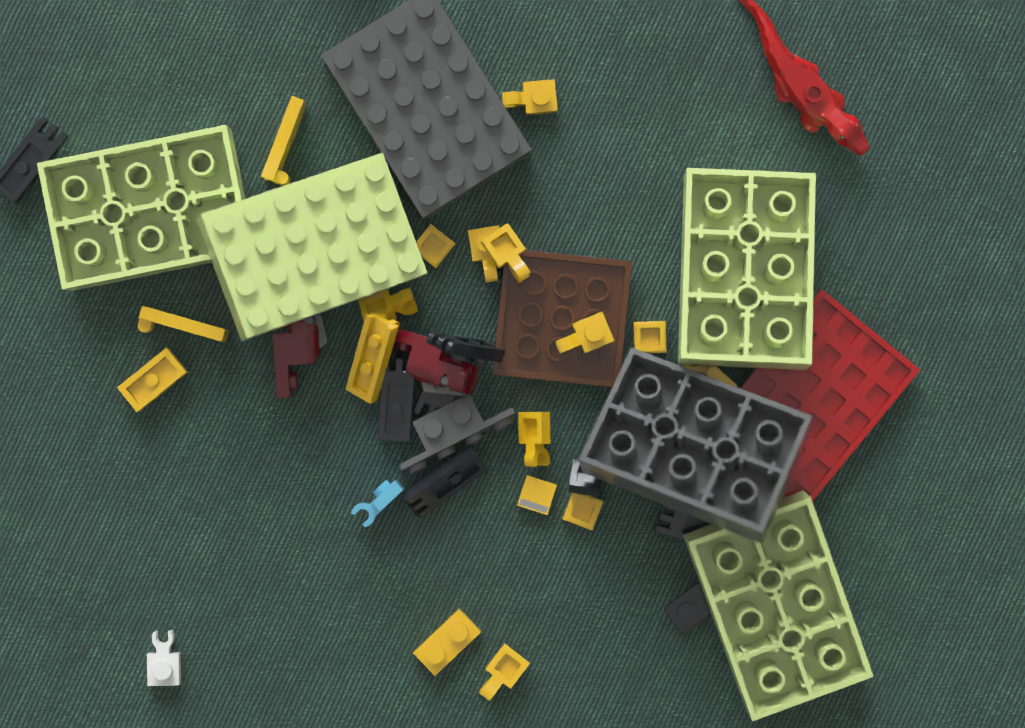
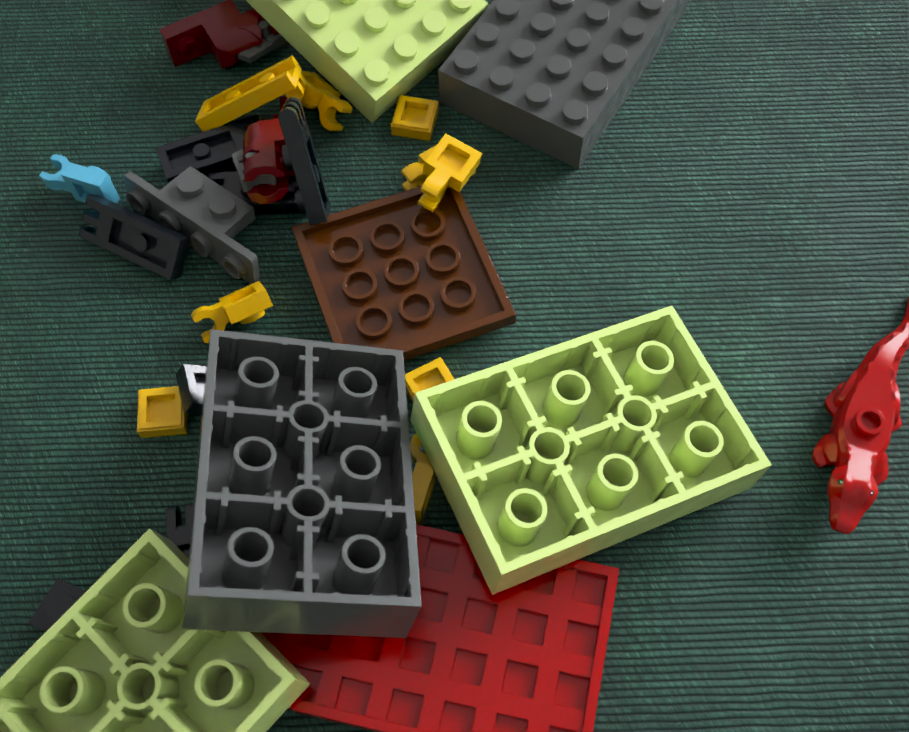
camera: 60 degrees right, 25 degrees down
(536, 495) = (160, 348): yellow tile -> none
(537, 97) = (642, 141): yellow plate -> none
(589, 333) = (393, 303): yellow plate -> none

